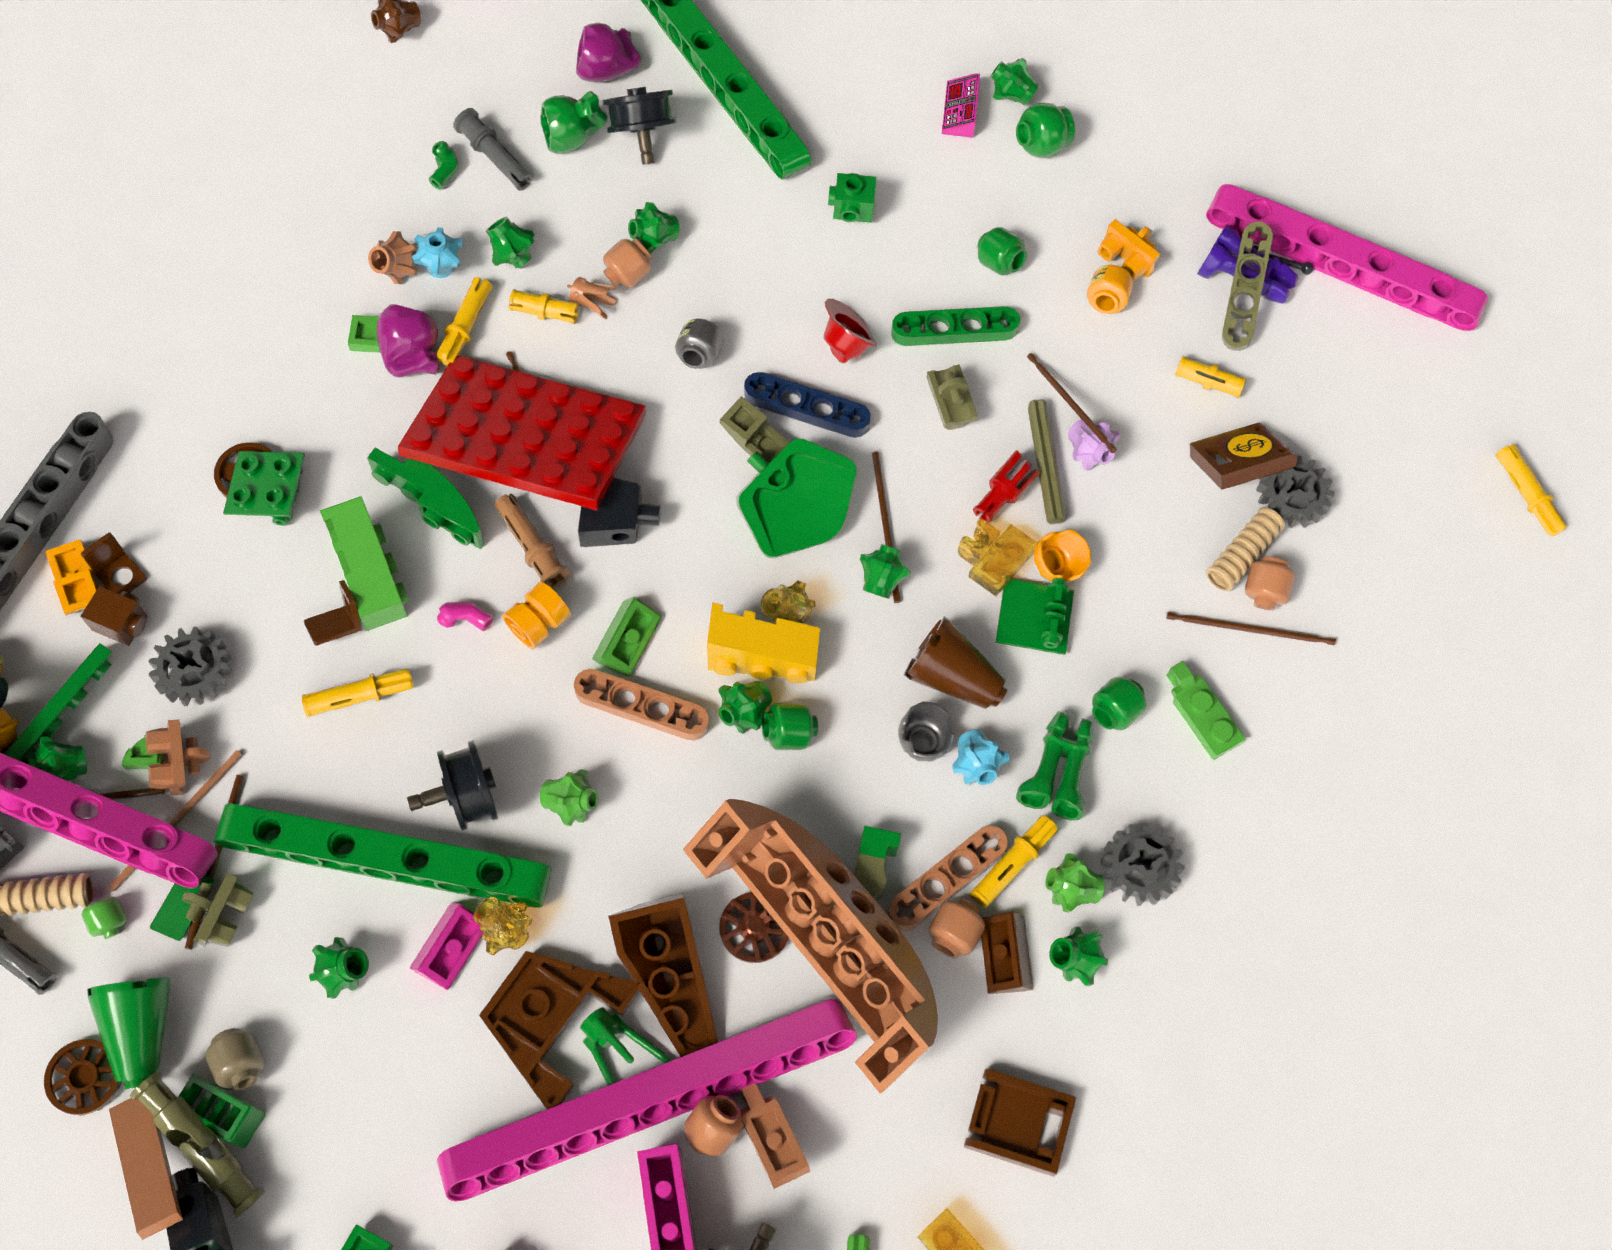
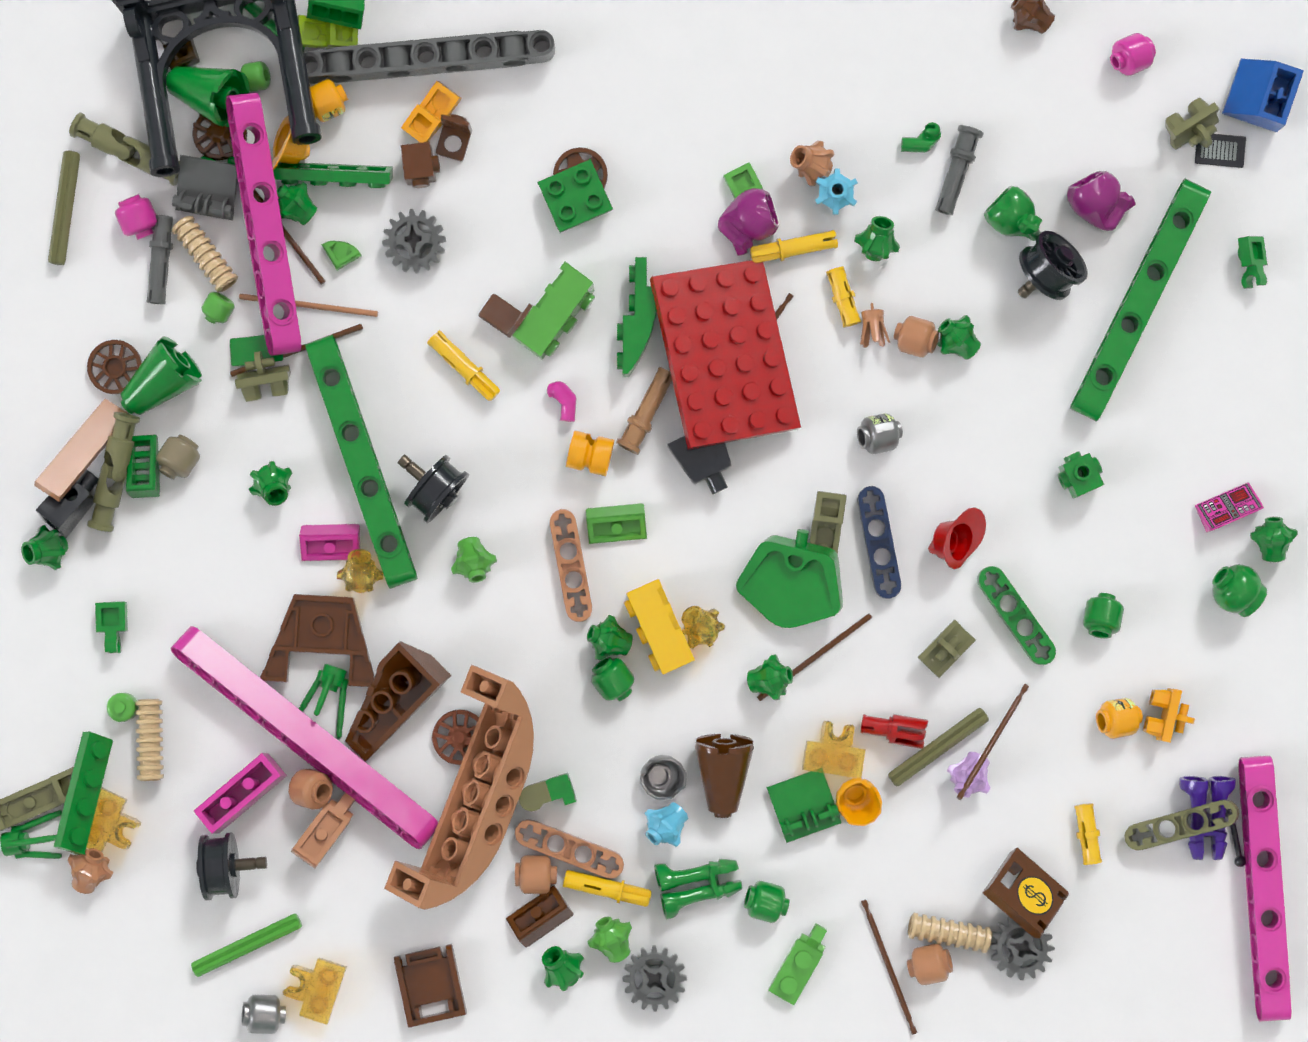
camera: 65 degrees right, 20 degrees up
(169, 741) = (333, 285): nougat hips -> none

